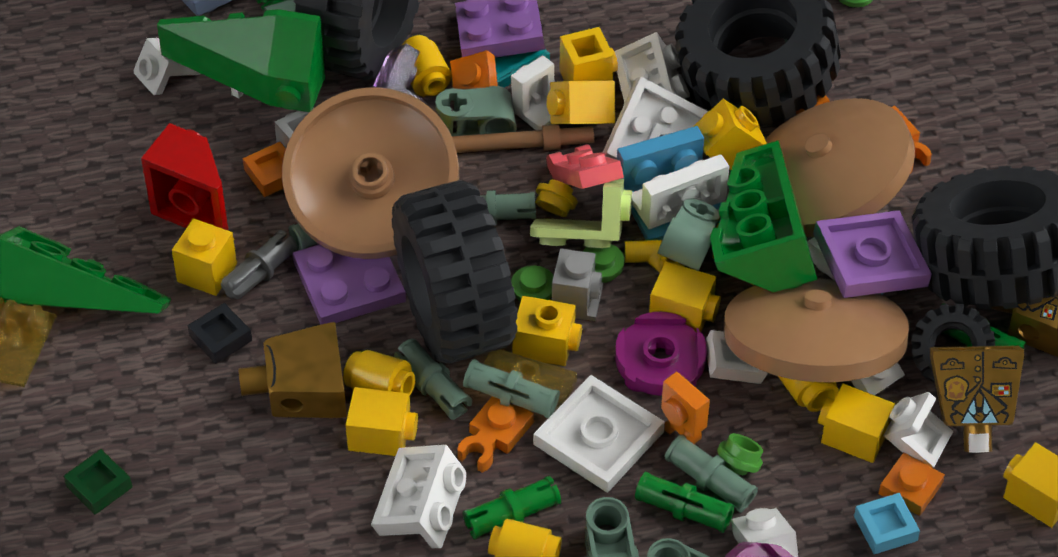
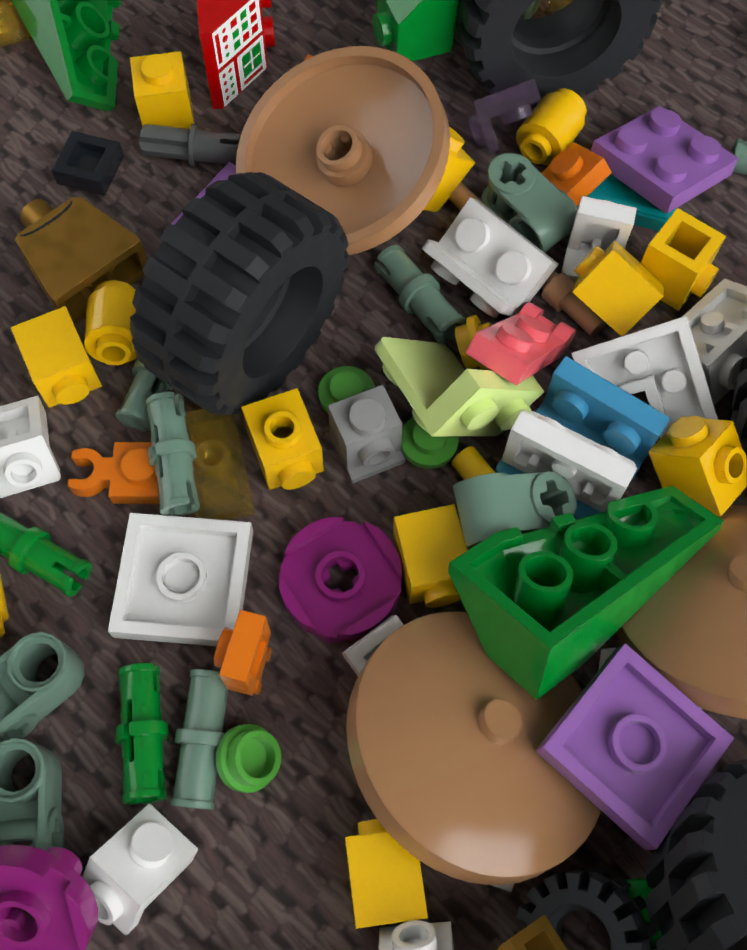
camera: 55 degrees right, 15 degrees up
(501, 154) = (490, 260): none -> white bracket

